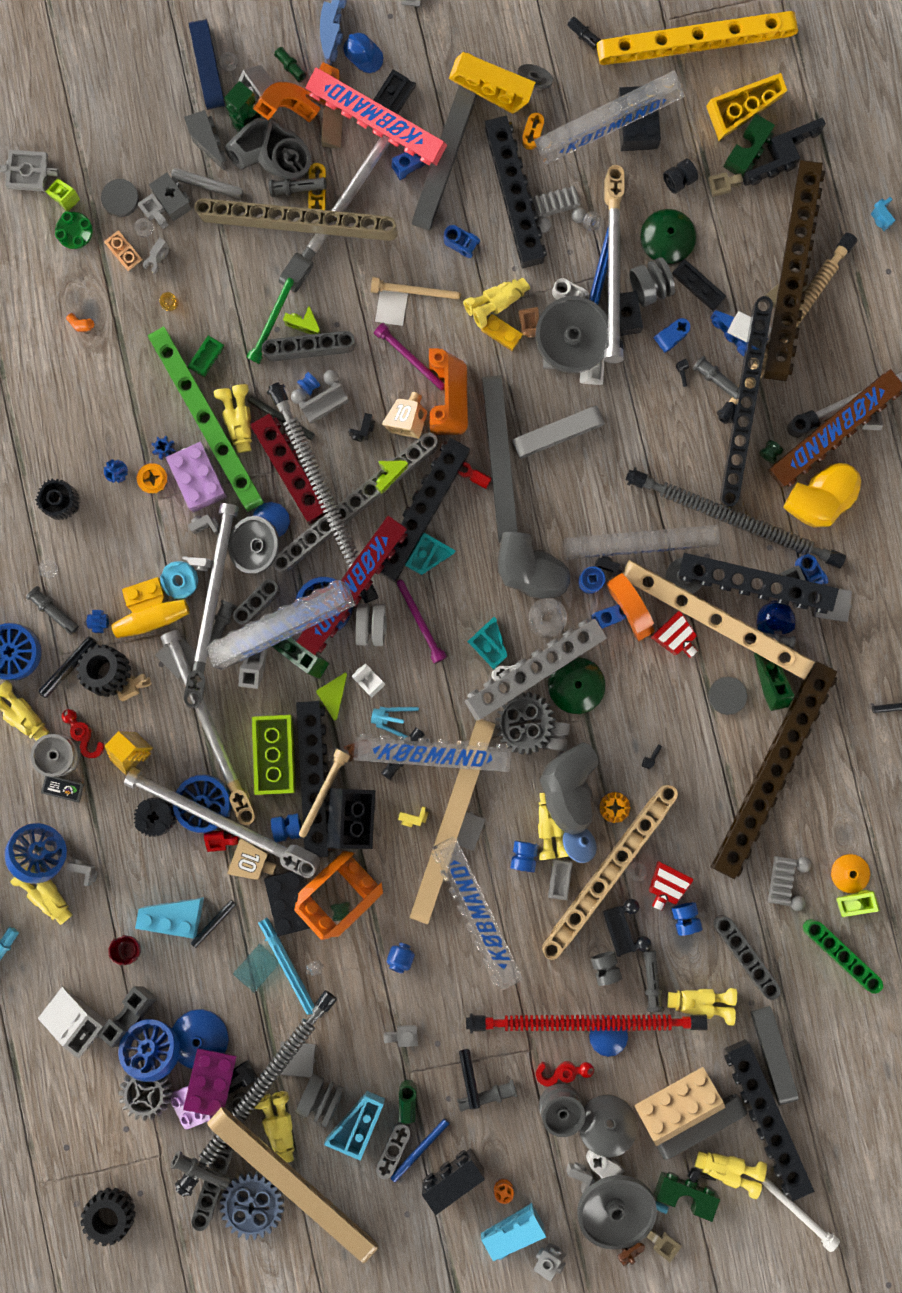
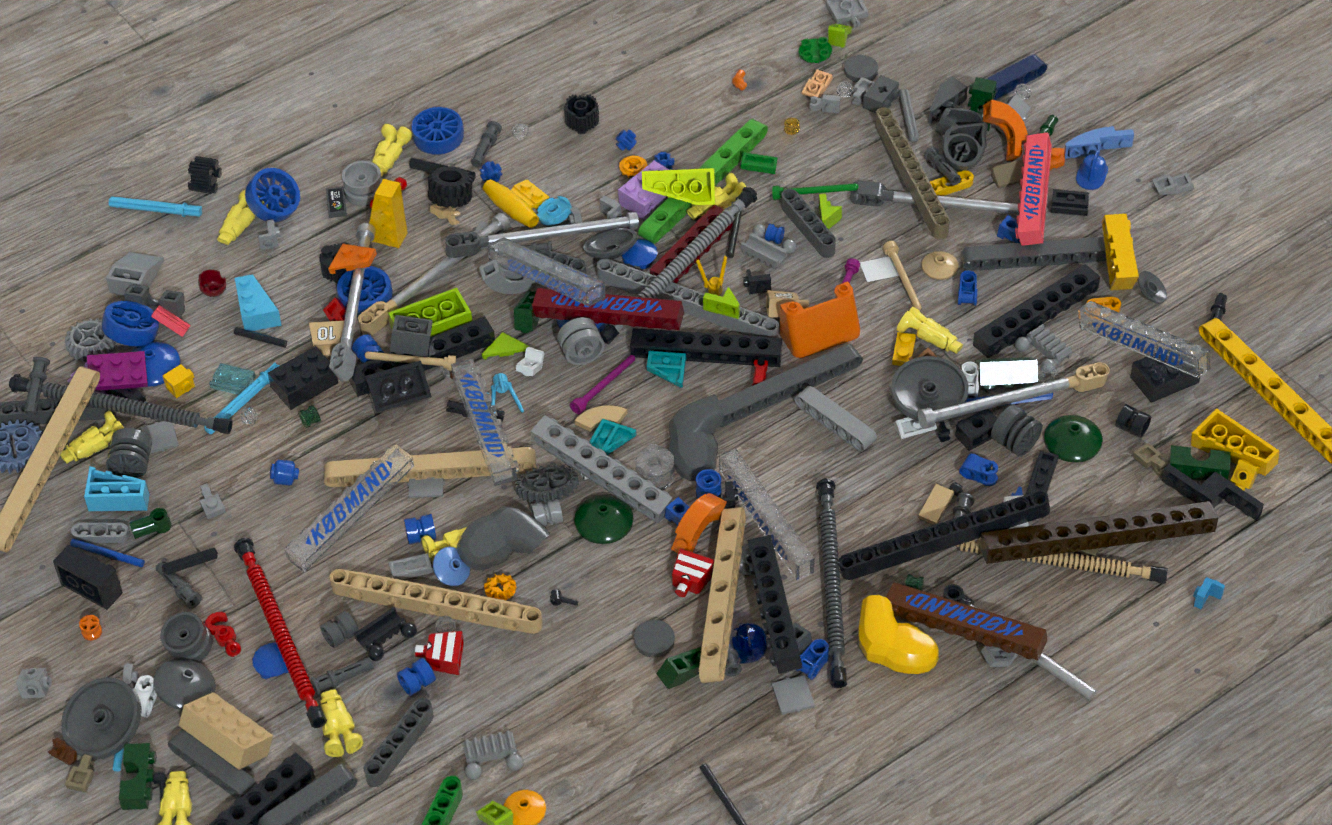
camera: 70 degrees right, 35 degrees down
(157, 1006) = (170, 321): none -> coral tile
(169, 806) = (352, 257): none -> orange wing
(218, 441) = (687, 185): none -> neon yellow wedge
(239, 1021) = (179, 381): none -> yellow brick
(300, 784) = (411, 336): none -> dark grey slope
(347, 467) = (714, 284): none -> yellow plant
(356, 877) = (345, 417): orange wedge -> none
(409, 820) = (421, 442): light yellow bracket -> none
(413, 258) = (939, 265): none -> tan dish
(458, 640) = (591, 418): none -> tan tile
(513, 1233) = (54, 646): medium azure wedge -> none
(572, 253) = (1007, 372): none -> slope
(693, 390) = (936, 504): none -> tan tile
(747, 809) = (608, 694): dark brown brick -> none
(780, 114) = (1251, 471): none -> yellow brick

